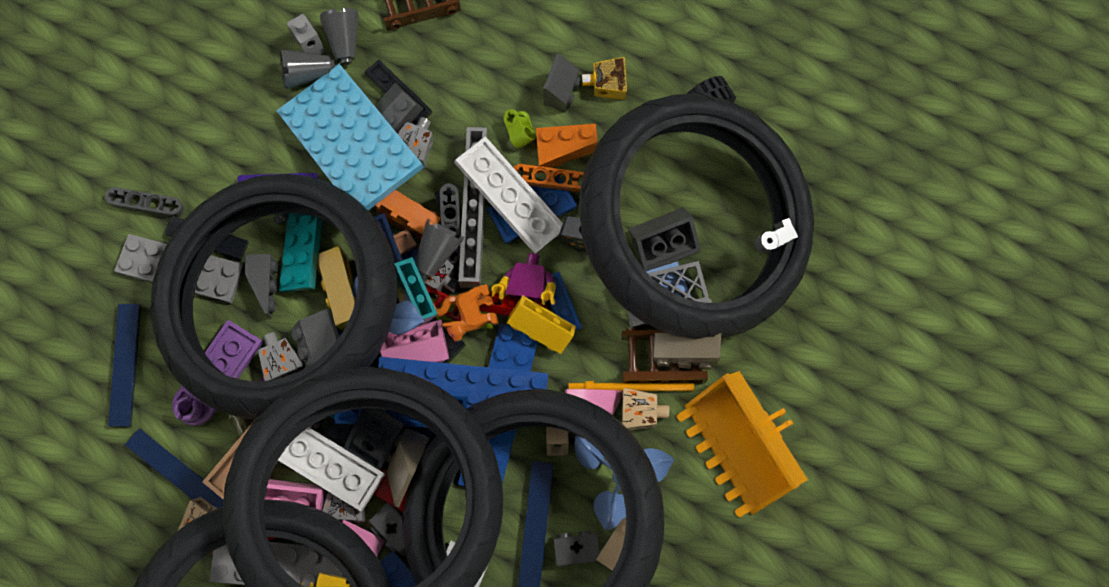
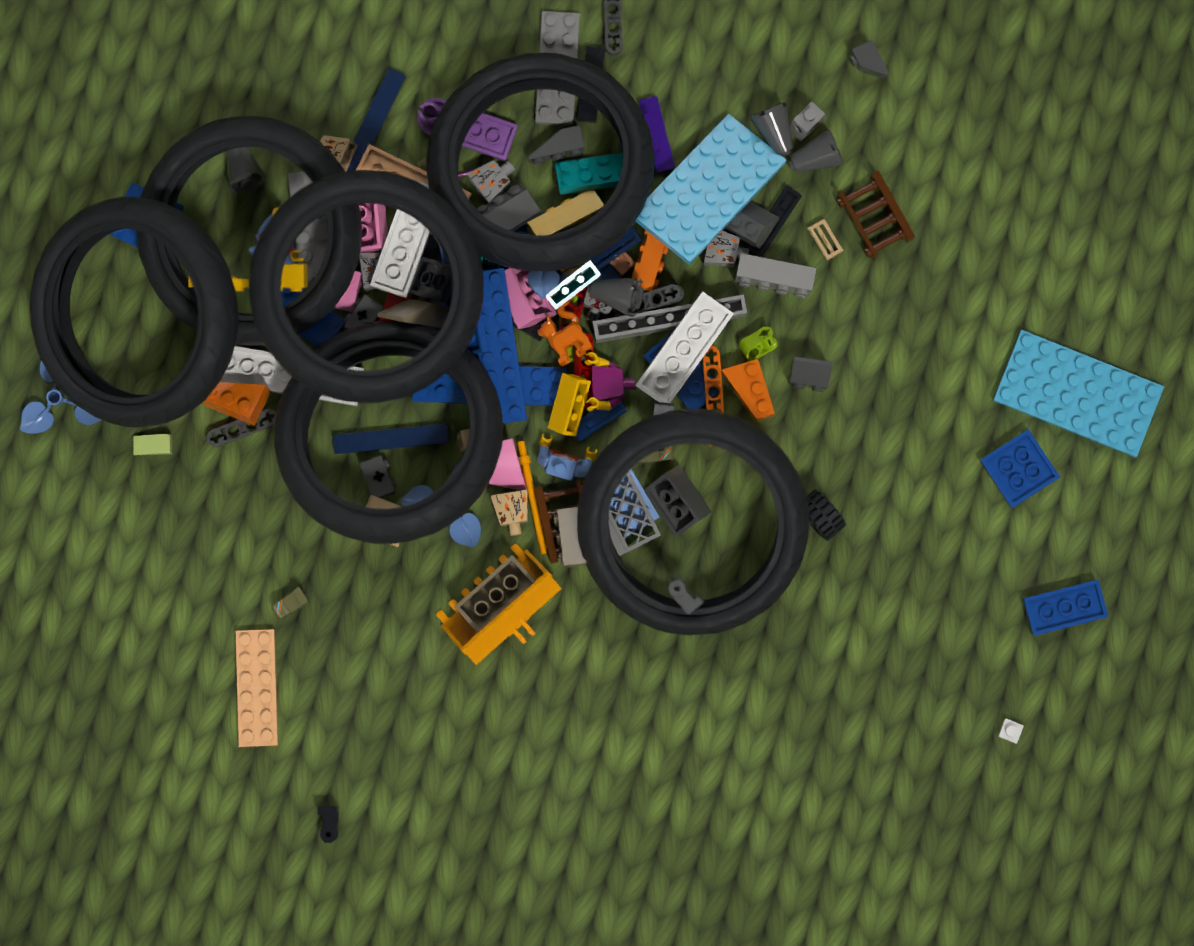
camera: 80 degrees right, 10 degrees up
(124, 365) = (459, 46): dark blue tile -> none
(429, 51) = (833, 253): none -> tan tile
(454, 96) = (775, 275): none -> light grey brick
(602, 347) = (562, 464): none -> medium blue torso
(608, 79) = (828, 417): torso -> none
(734, 443) = (494, 593): none -> dark tan slope

